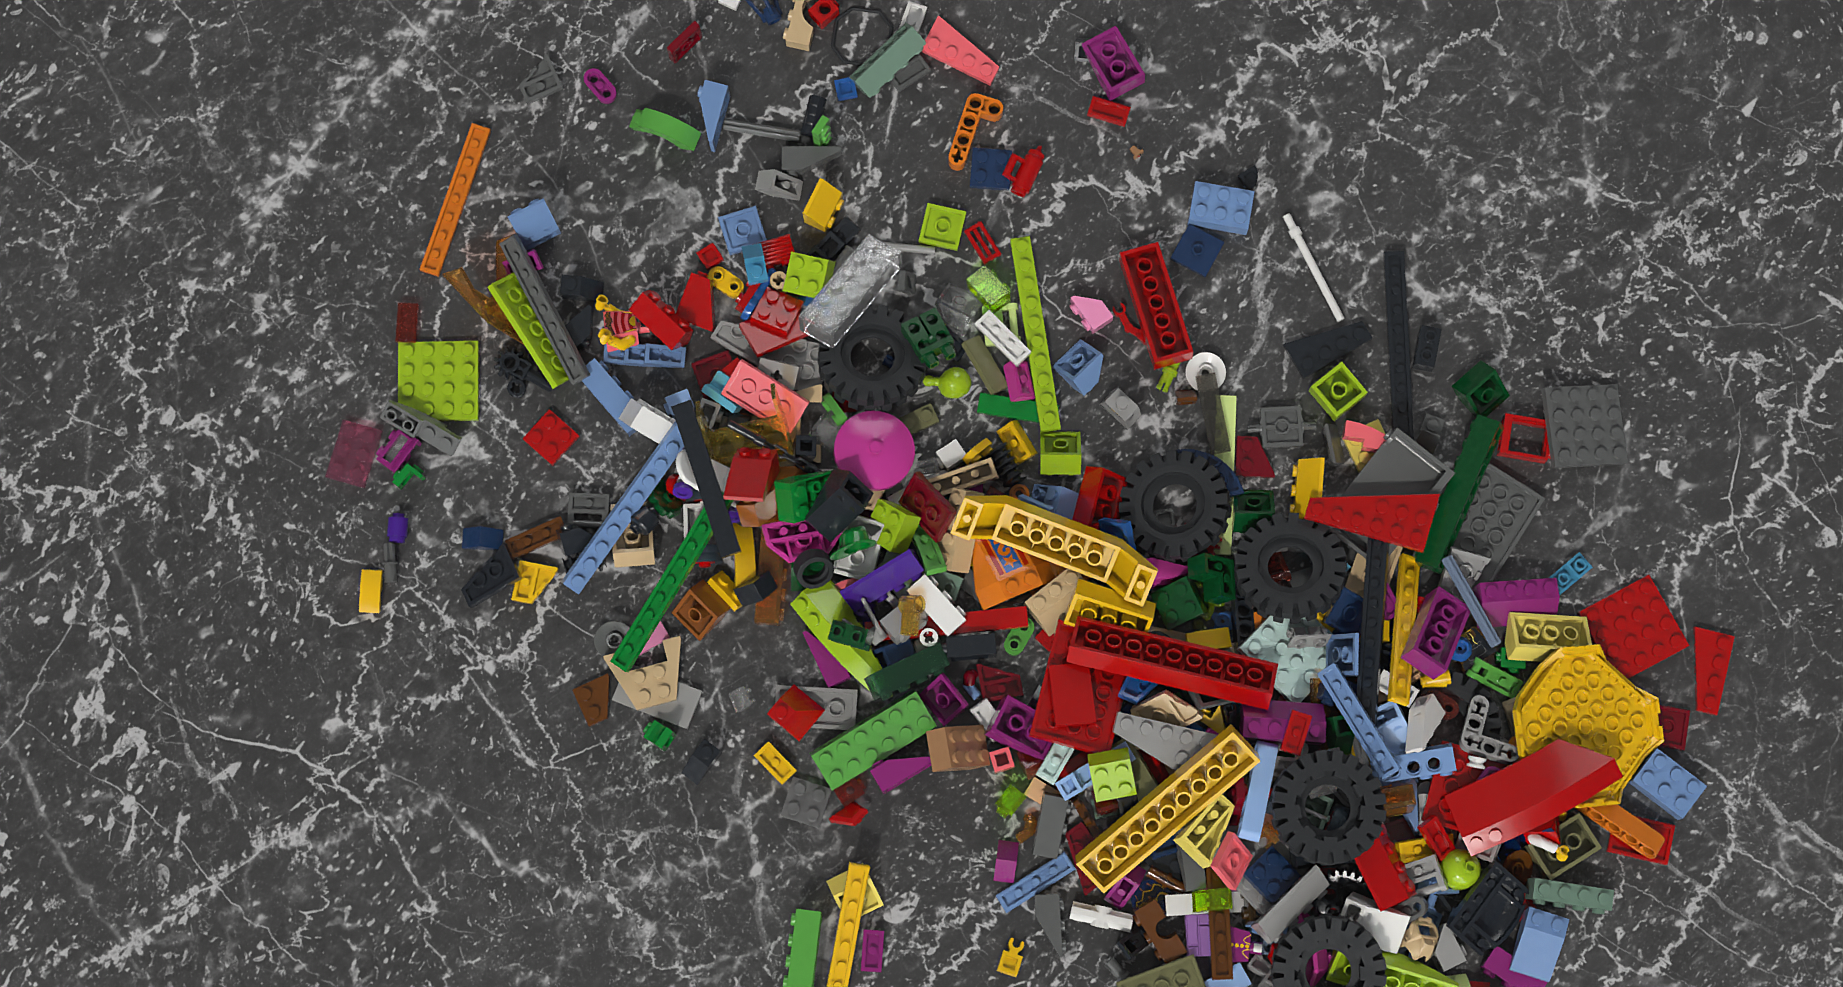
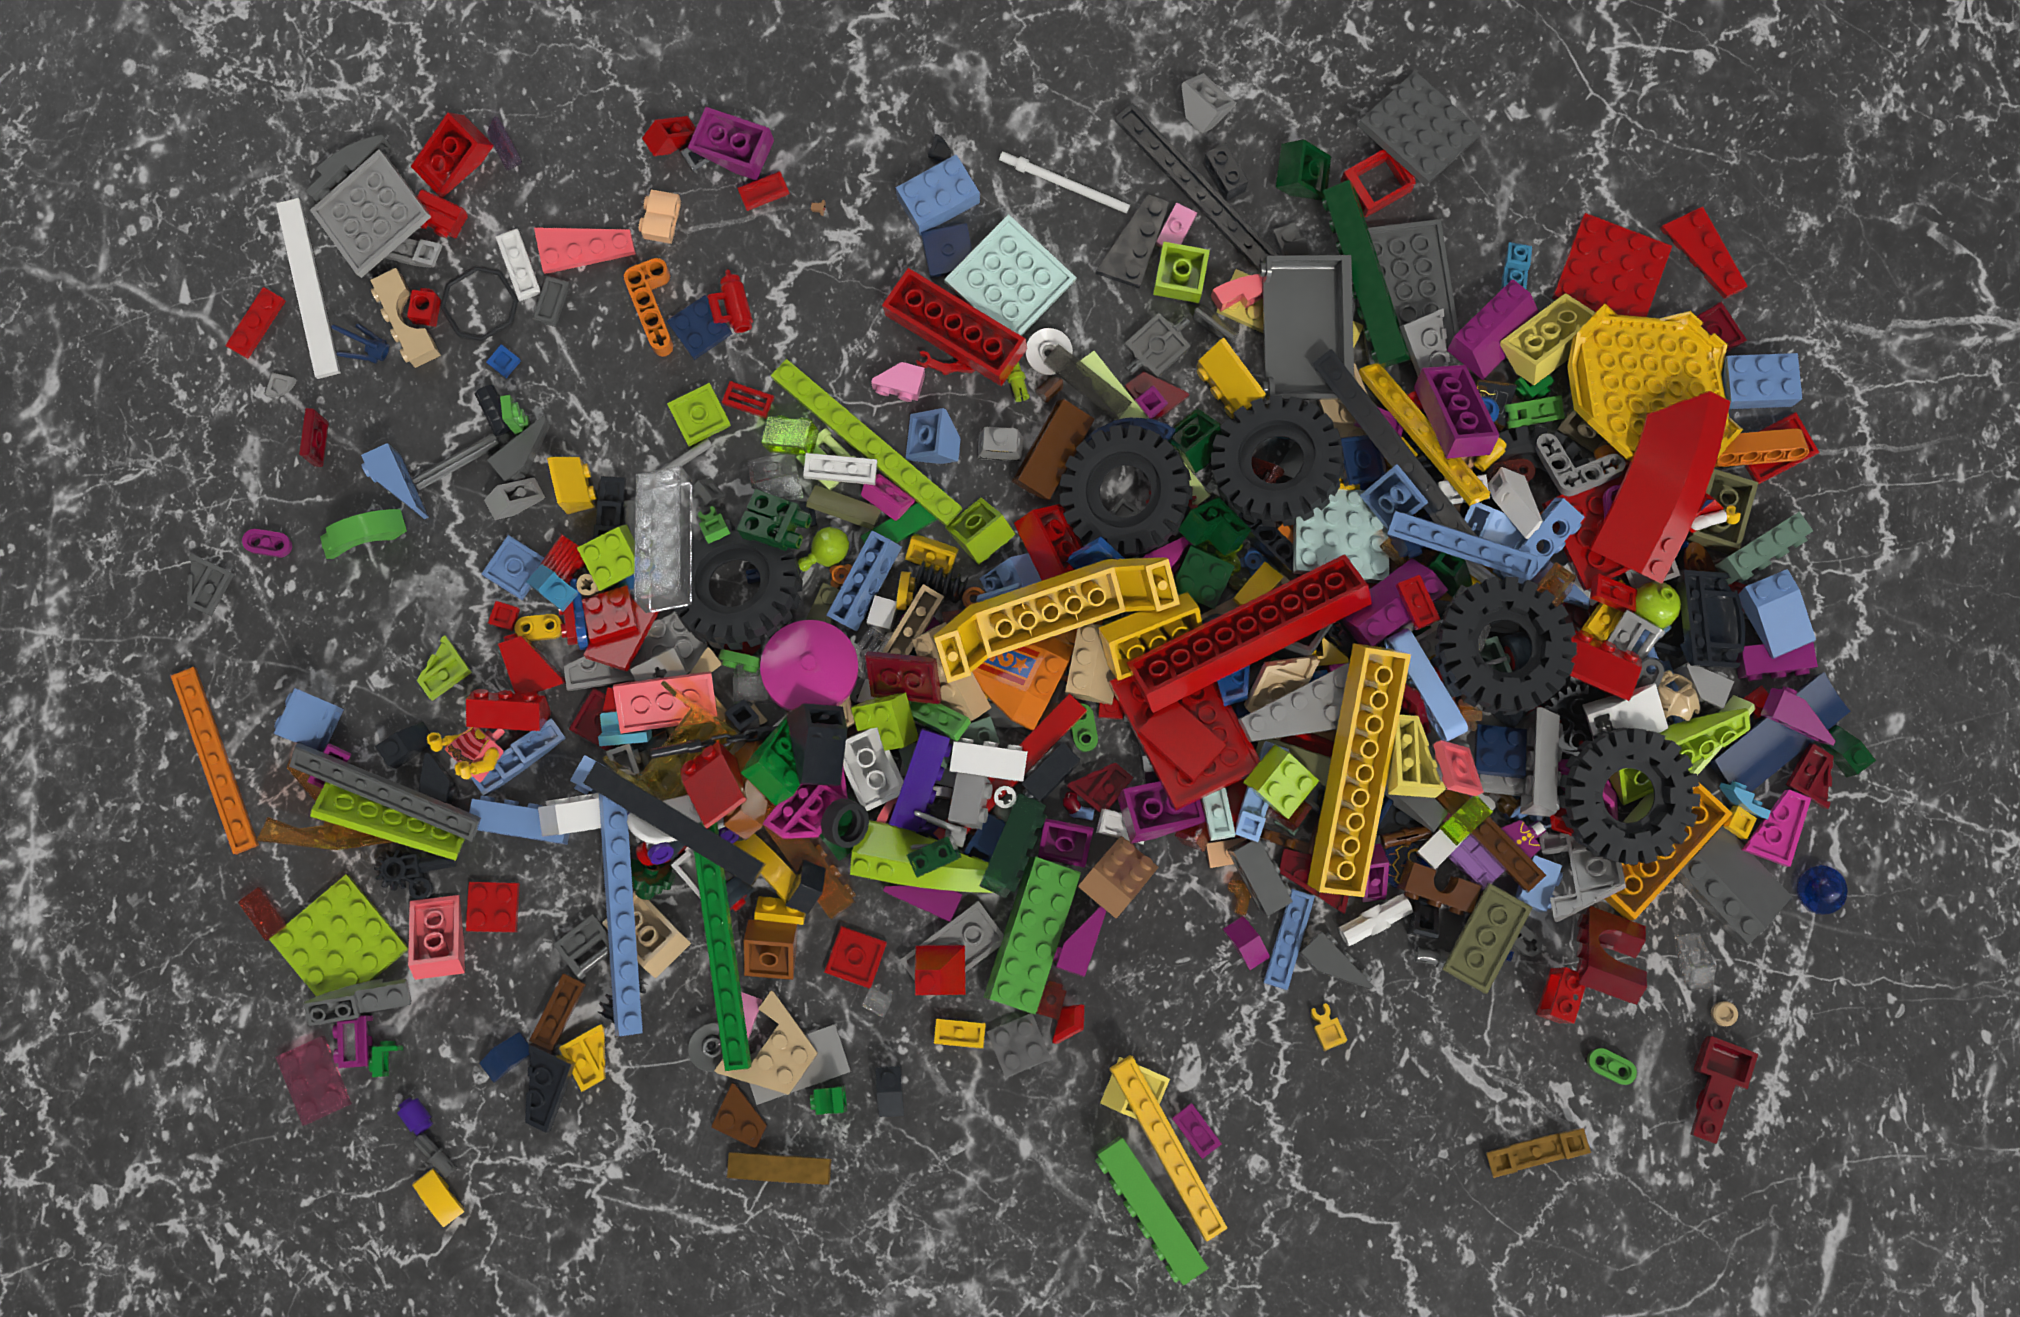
camera: 45 degrees left, 0 degrees up
(500, 427) = (436, 937): none -> coral slope
(573, 538) = (593, 984): black slope -> none
(592, 750) = (779, 1168): none -> pearl gold slope
(643, 260) = (443, 670): none -> lime wing
(644, 520) = (647, 911): black head -> none
(750, 660) = (855, 957): none -> red tile
(852, 541) = (860, 767): green piece -> none
(888, 60) = (521, 302): sand green brick -> none
(889, 308) = (713, 525): none -> bright green plate
(910, 607) = (968, 783): clear yellow piece -> none
(945, 402) = (836, 571): none -> orange plate
(957, 424) = (864, 580): none -> medium blue brick
(1001, 760) = (1165, 853): coral brick -> none
(1010, 802) = (1206, 885): clear neon green brick -> none
(1026, 74) = (660, 216): none -> light nougat brick
(1077, 24) = (668, 135): none -> red slope
(1151, 438) = (1052, 448): none -> reddish brown brick
(1221, 303) = (1010, 277): none -> light aqua plate
(1243, 461) = (1151, 402): none -> magenta slope
(1316, 637) = (1353, 504): light grey hinge -> none
(1363, 358) = (1176, 225): none -> bright pink plate
(1387, 518) = (1328, 343): red wing -> none
(1454, 290) = (1205, 103): none -> light grey slope
(1471, 601) = (1461, 358): sand blue axle -> none
(1476, 762) = (1592, 496): white bush -> none

